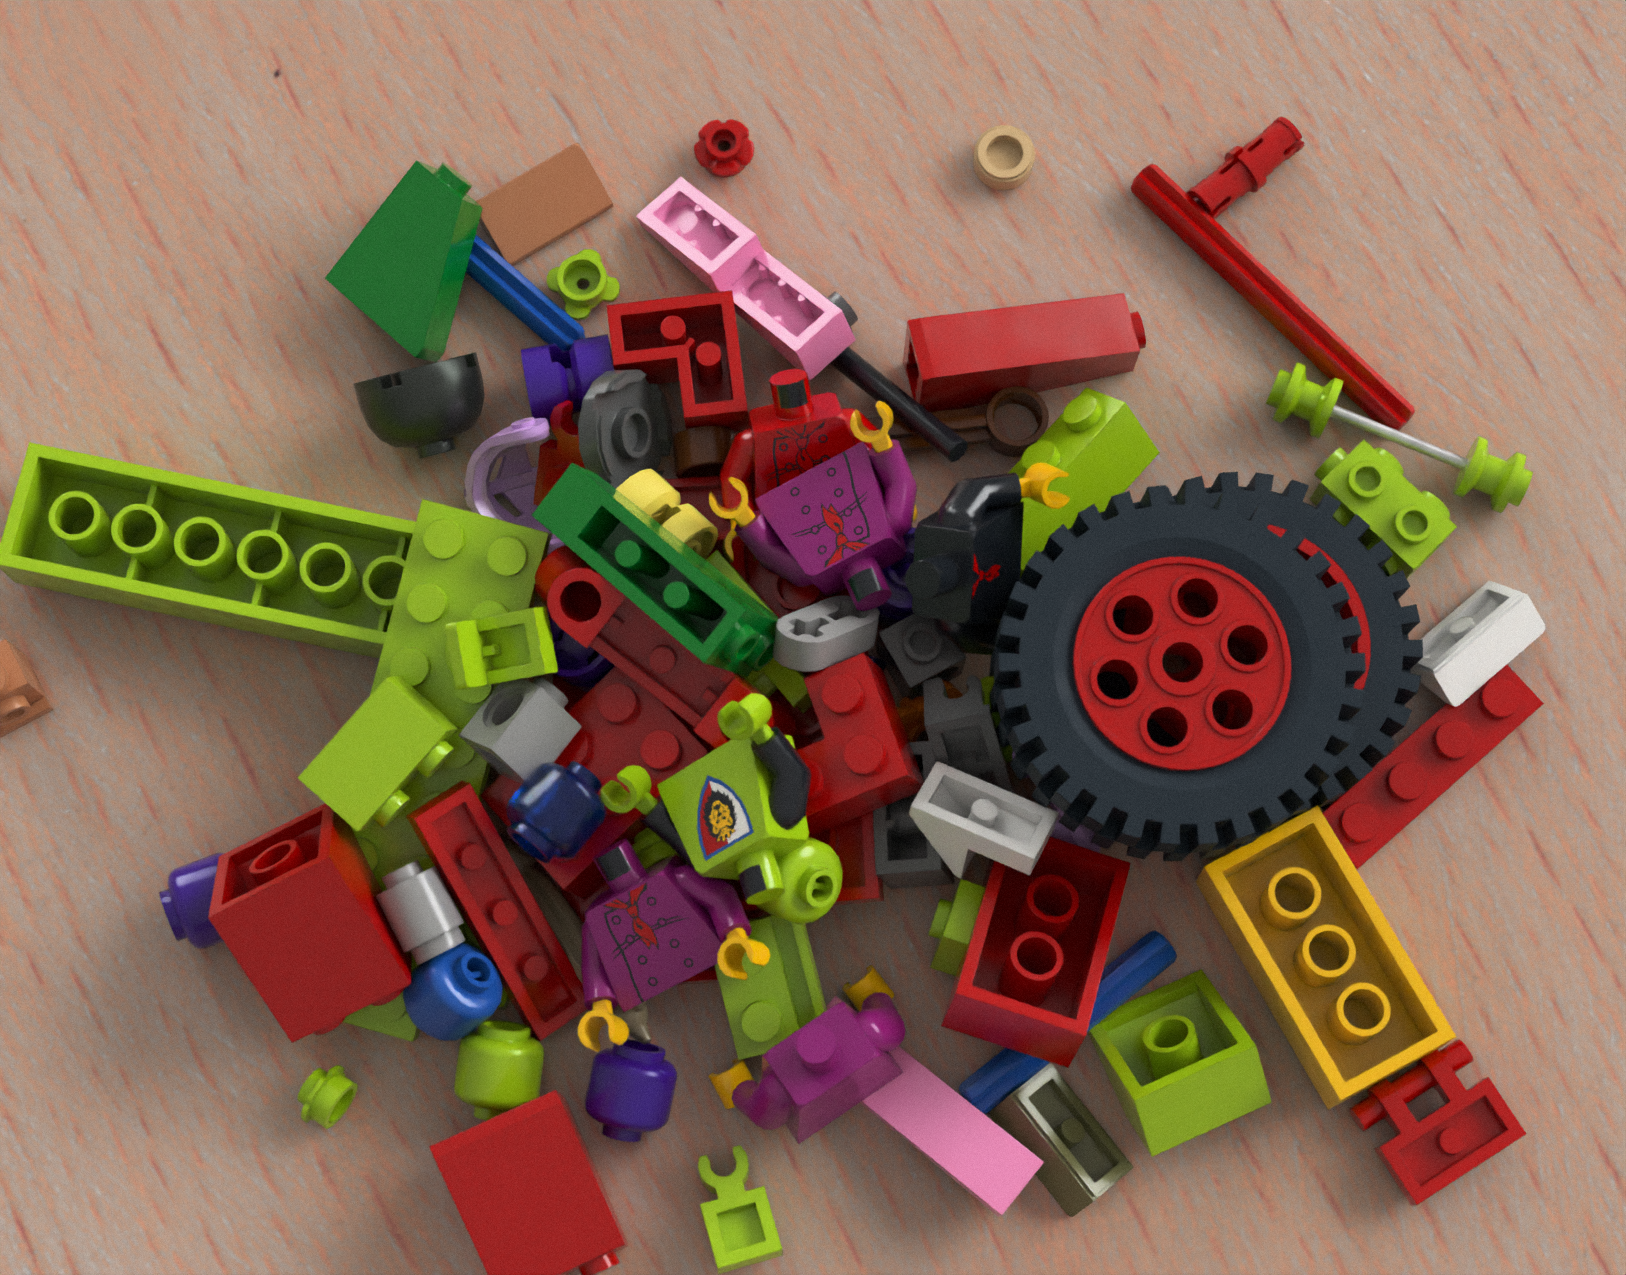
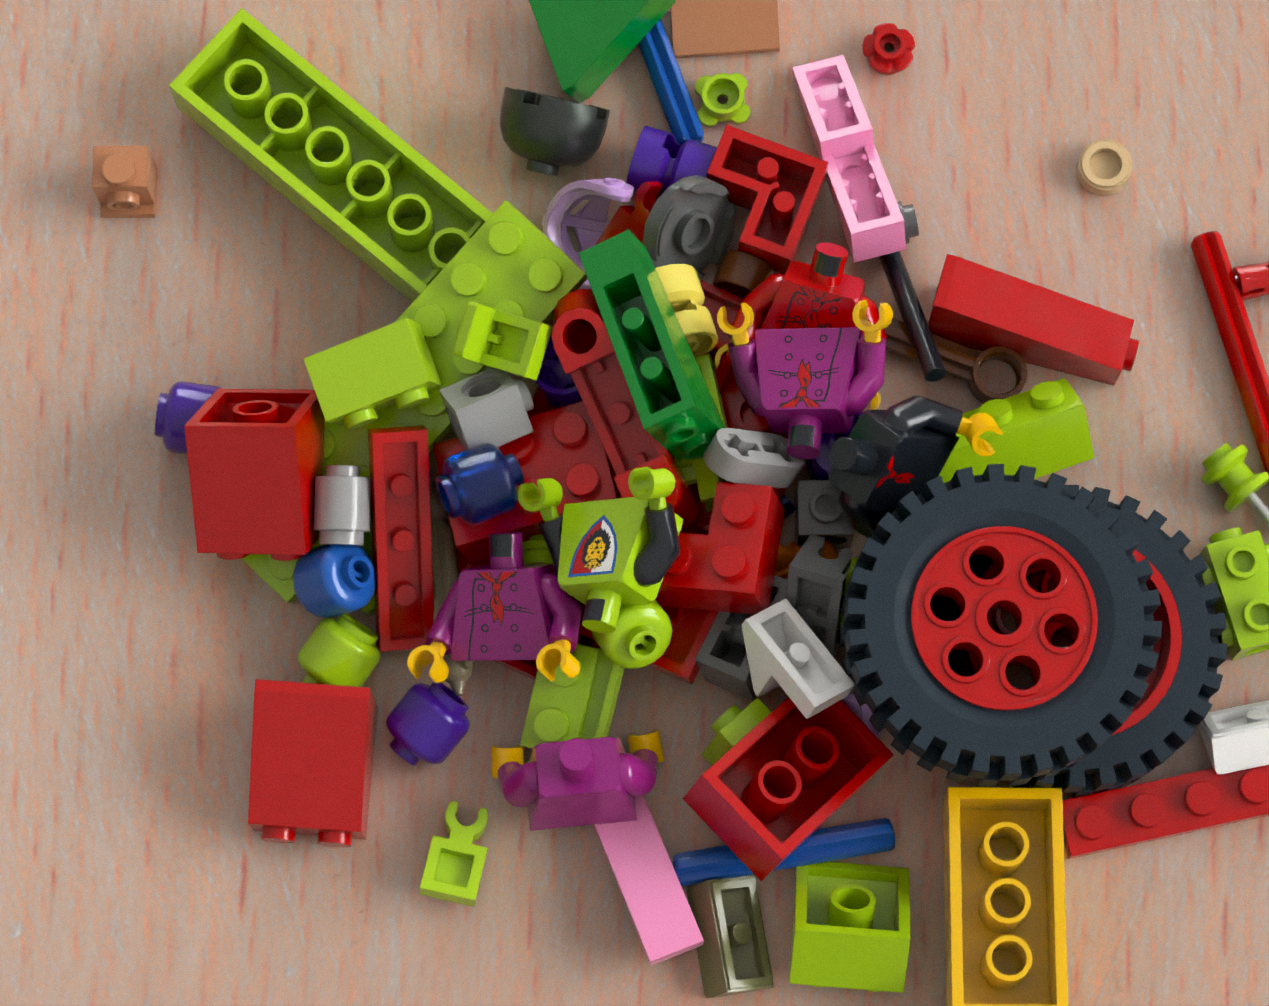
camera: 30 degrees right, 0 degrees up
(326, 1096) = (203, 608): lime plate -> none

